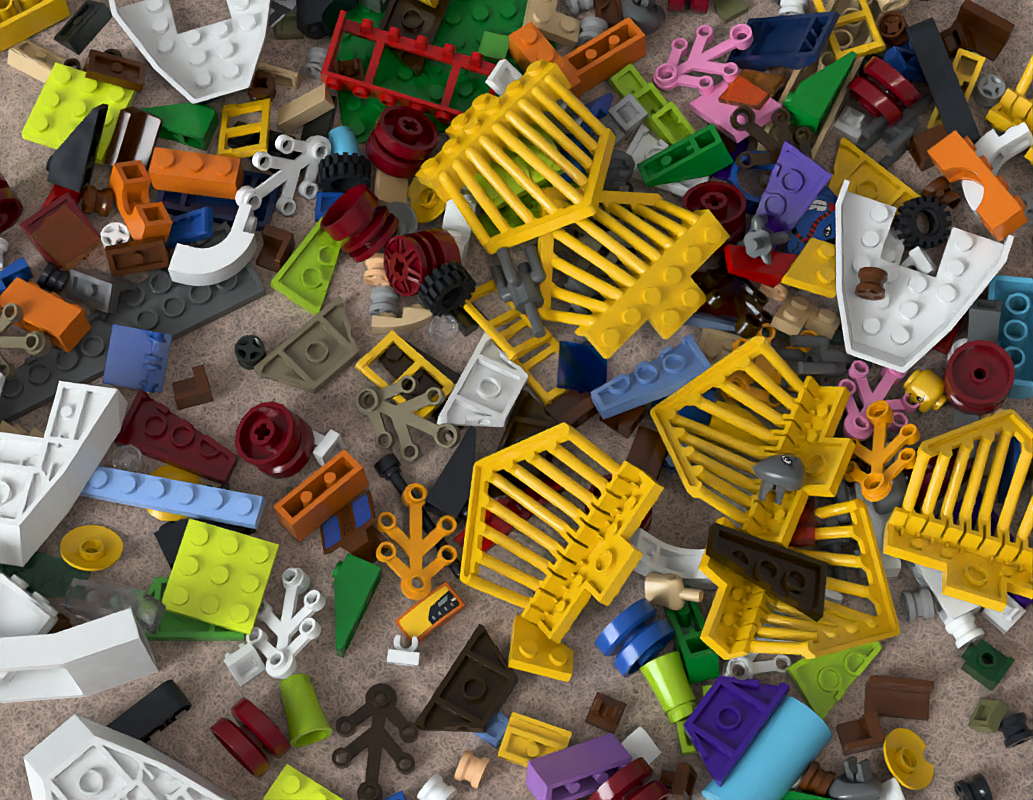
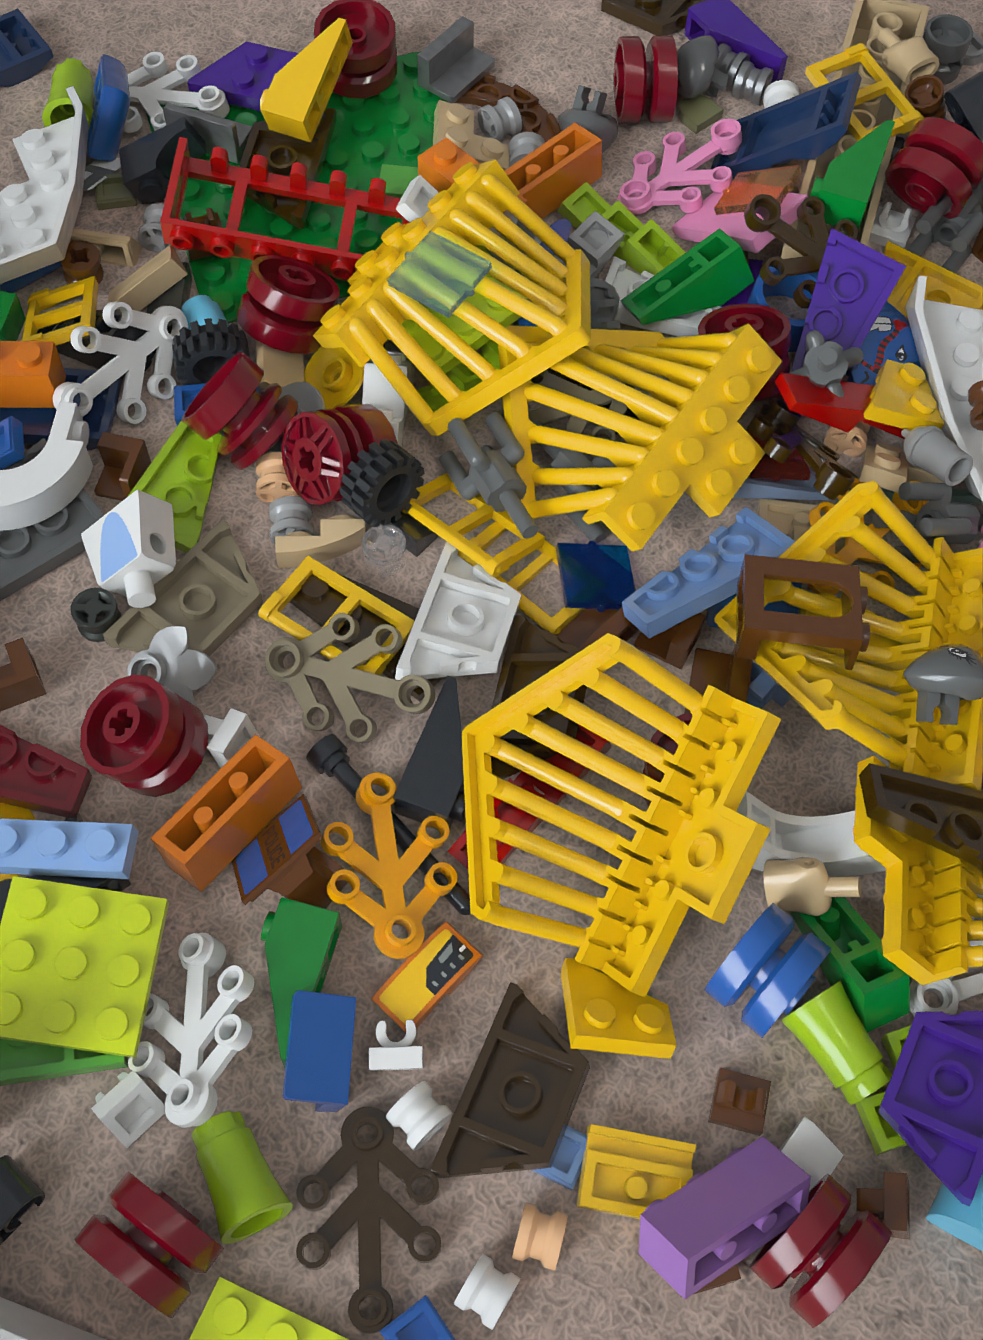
camera: 10 degrees left, 5 degrees down
(278, 311) = (133, 547): none -> white torso
(299, 396) = (176, 665): none -> light grey plate
(359, 646) = (319, 1050): none -> blue panel
(412, 692) = (419, 1115): none -> white wheel
(504, 148) = (439, 274): none -> clear light blue piece
(718, 436) = (836, 632): none -> reddish brown panel
(824, 315) = (932, 451): none -> light grey piece

